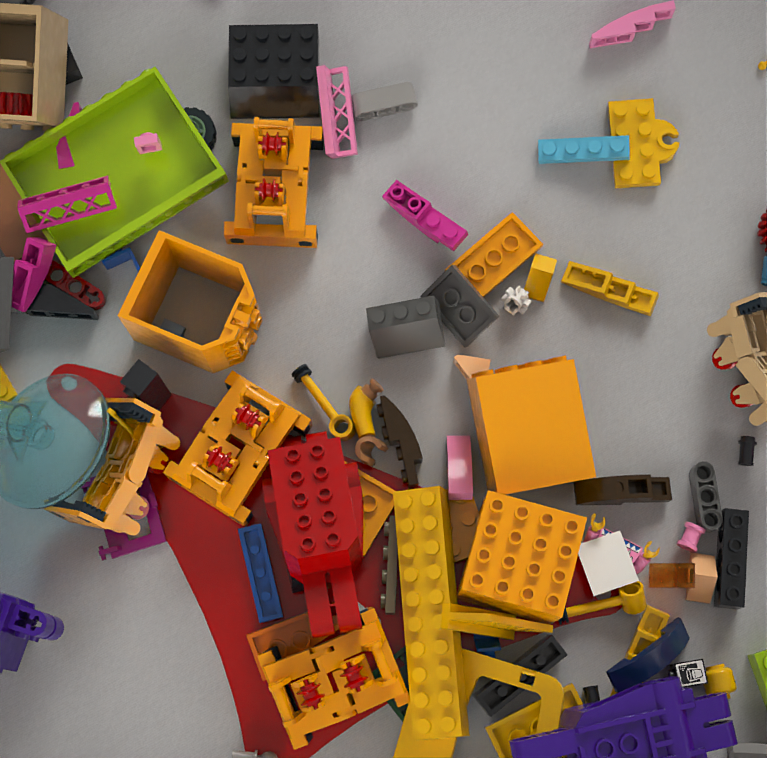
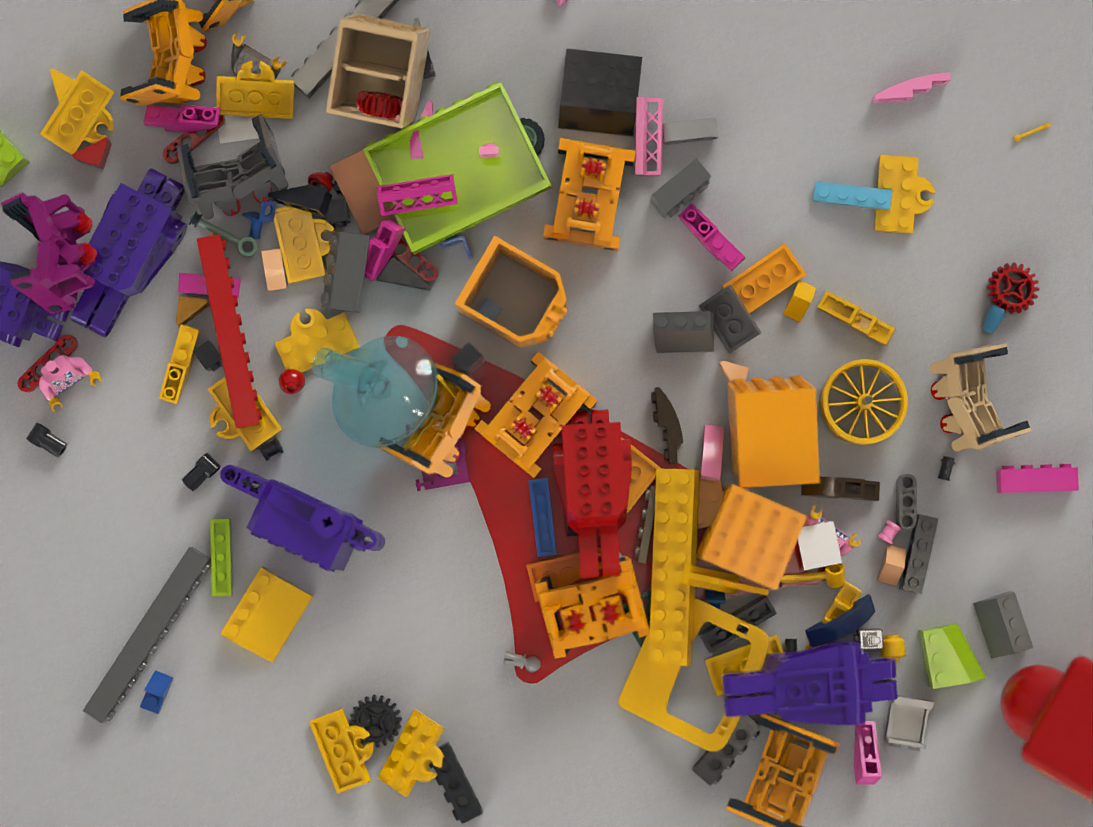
camera: 10 degrees right, 10 degrees up
(302, 374) = (593, 359): yellow piece -> none
(361, 406) = (638, 393): piece -> none
(381, 164) = (681, 189): none -> dark grey brick
(516, 300) = (777, 320): white gear -> none
(635, 382) = (863, 401): none -> yellow wheel
(672, 575) = (869, 561): clear orange slope -> none

